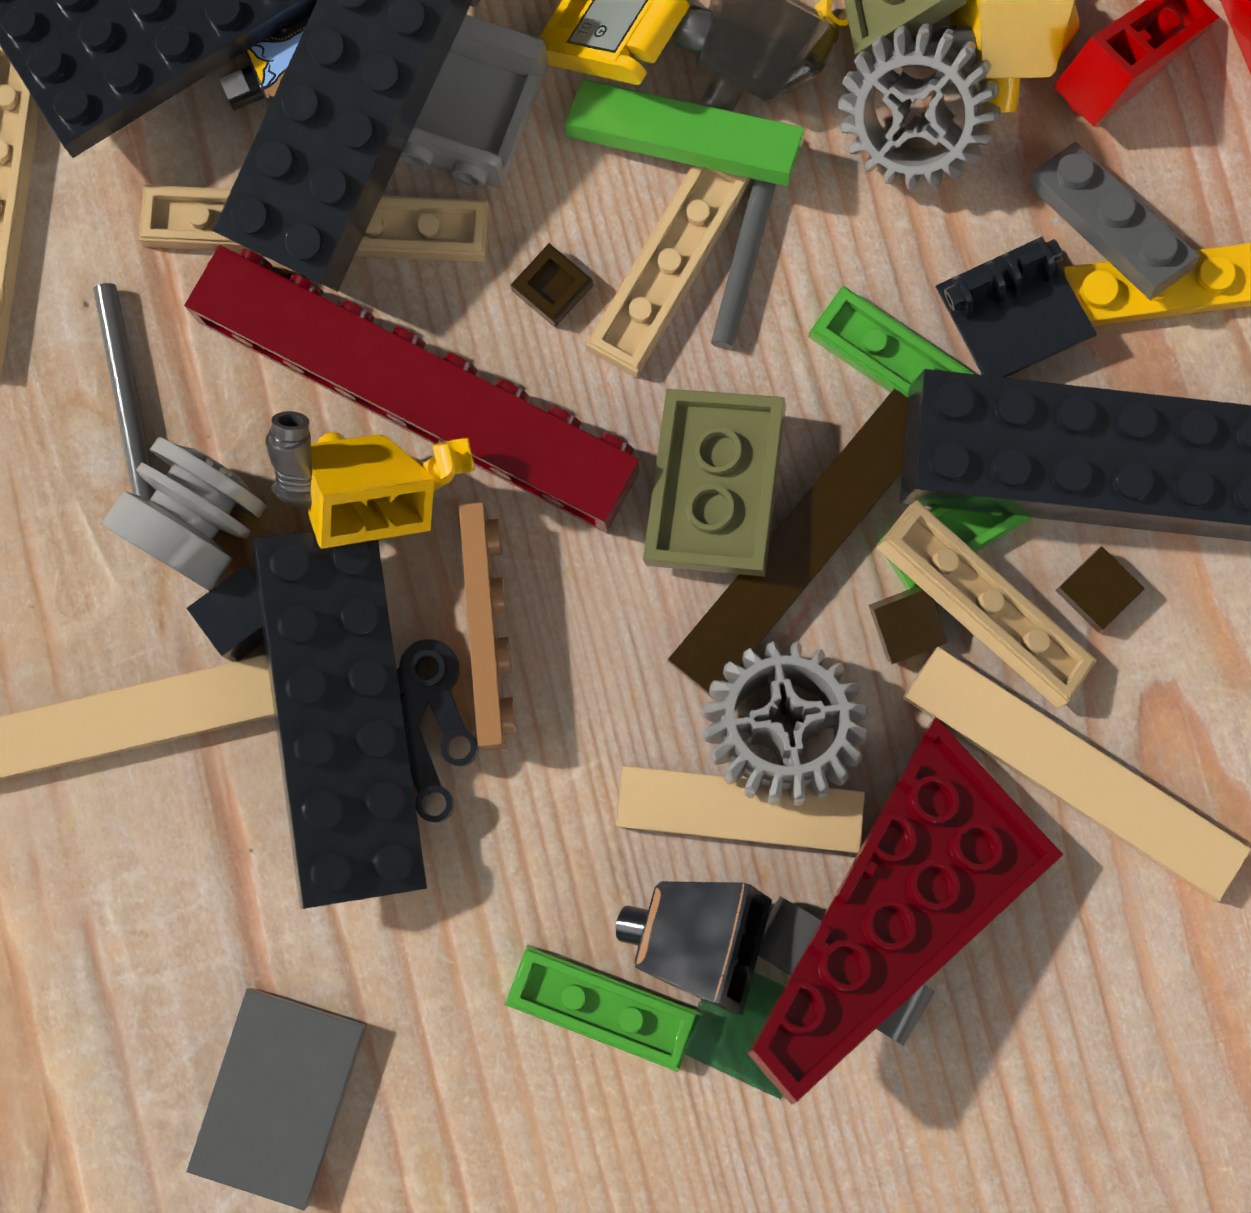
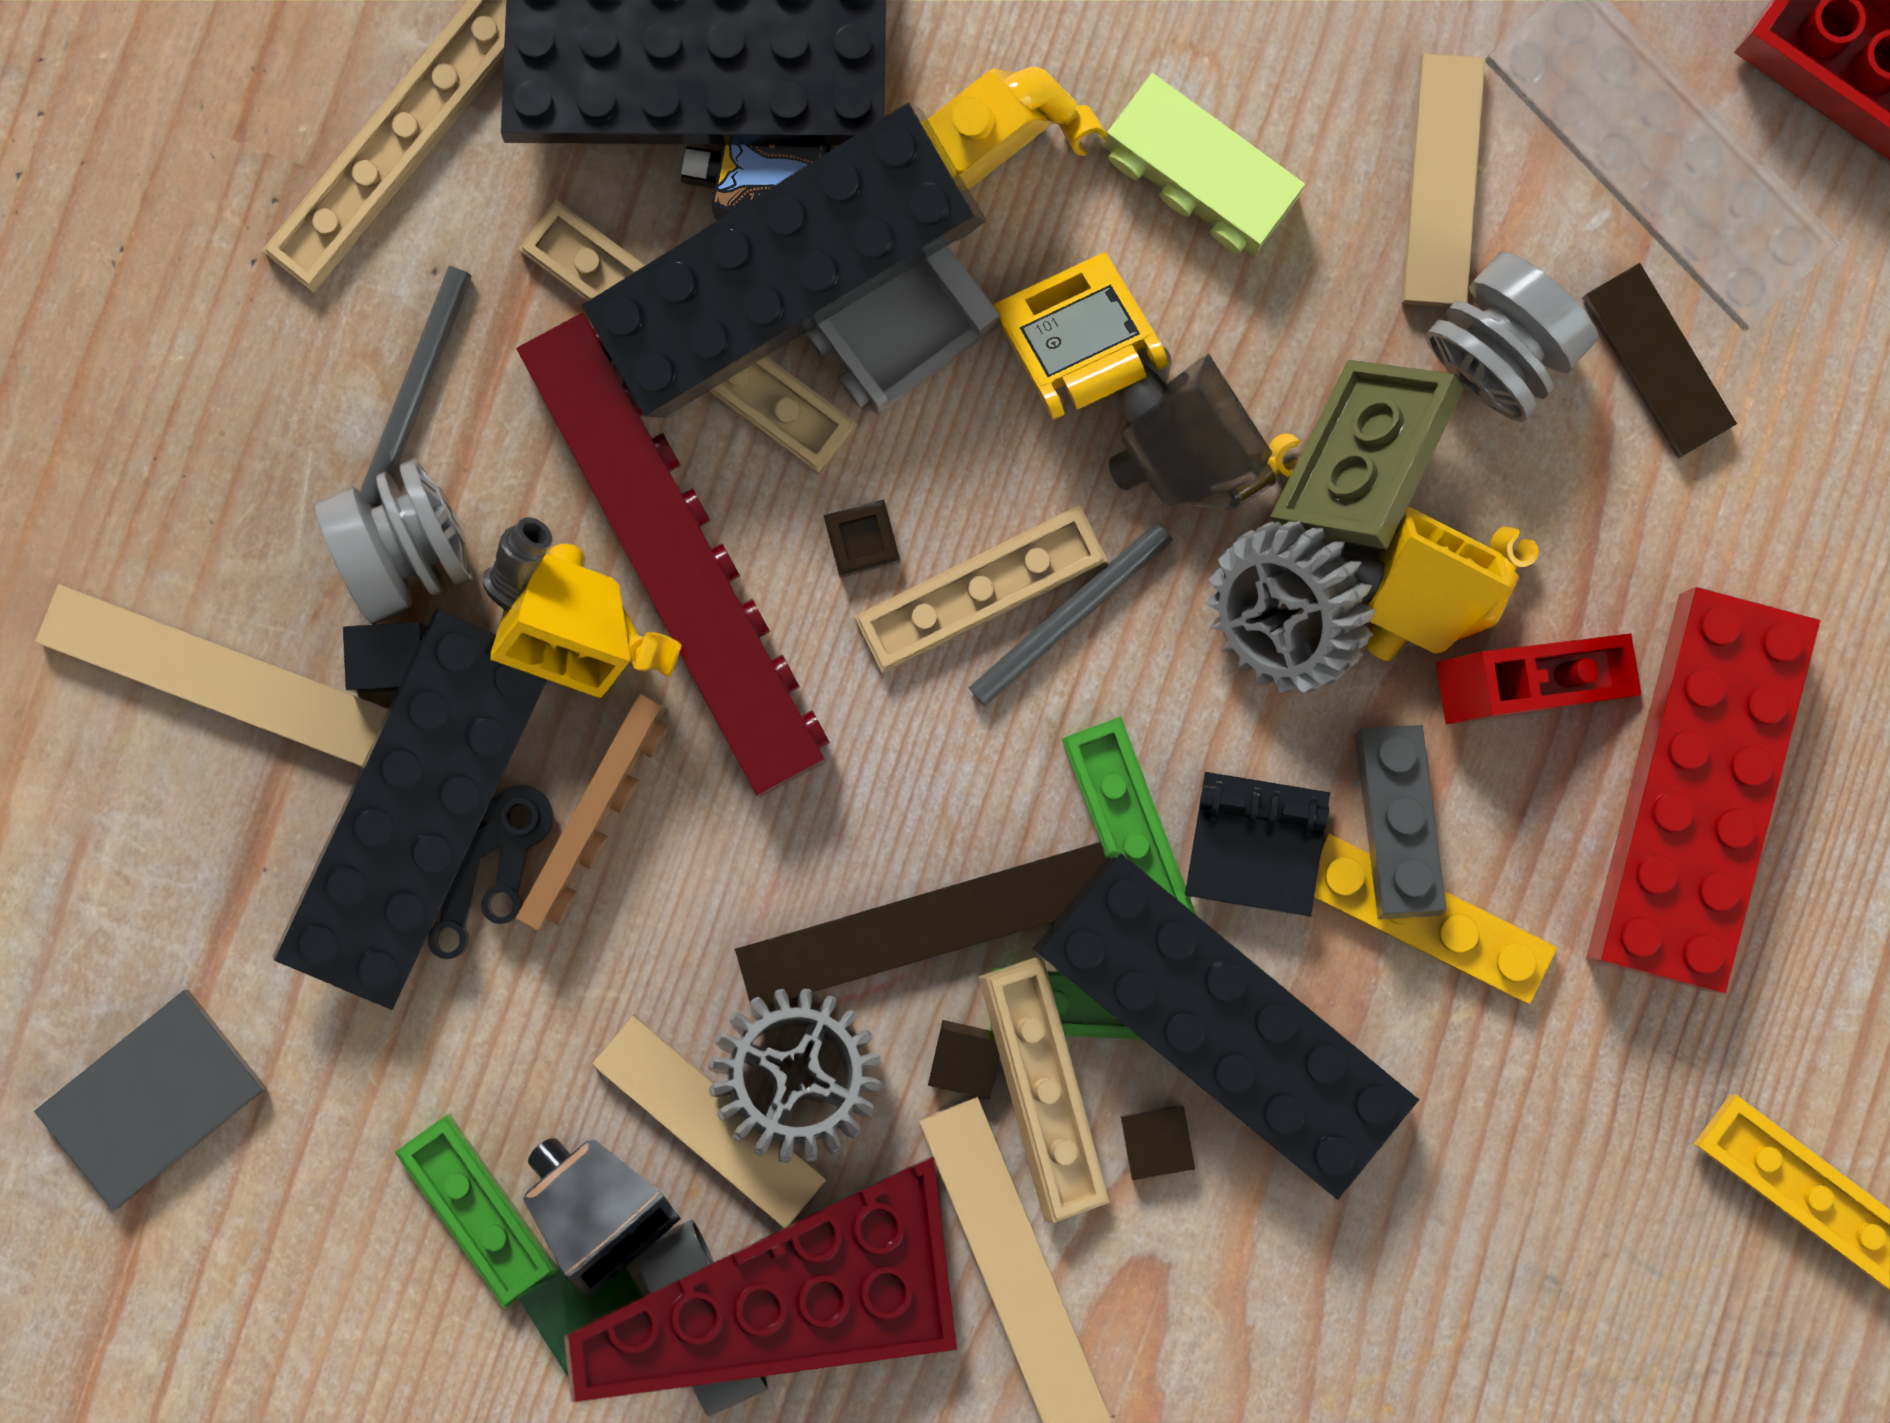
camera: 30 degrees right, 5 degrees up
(685, 132) = (1073, 481): bright green tile -> none
(715, 482) = (881, 820): olive plate -> none

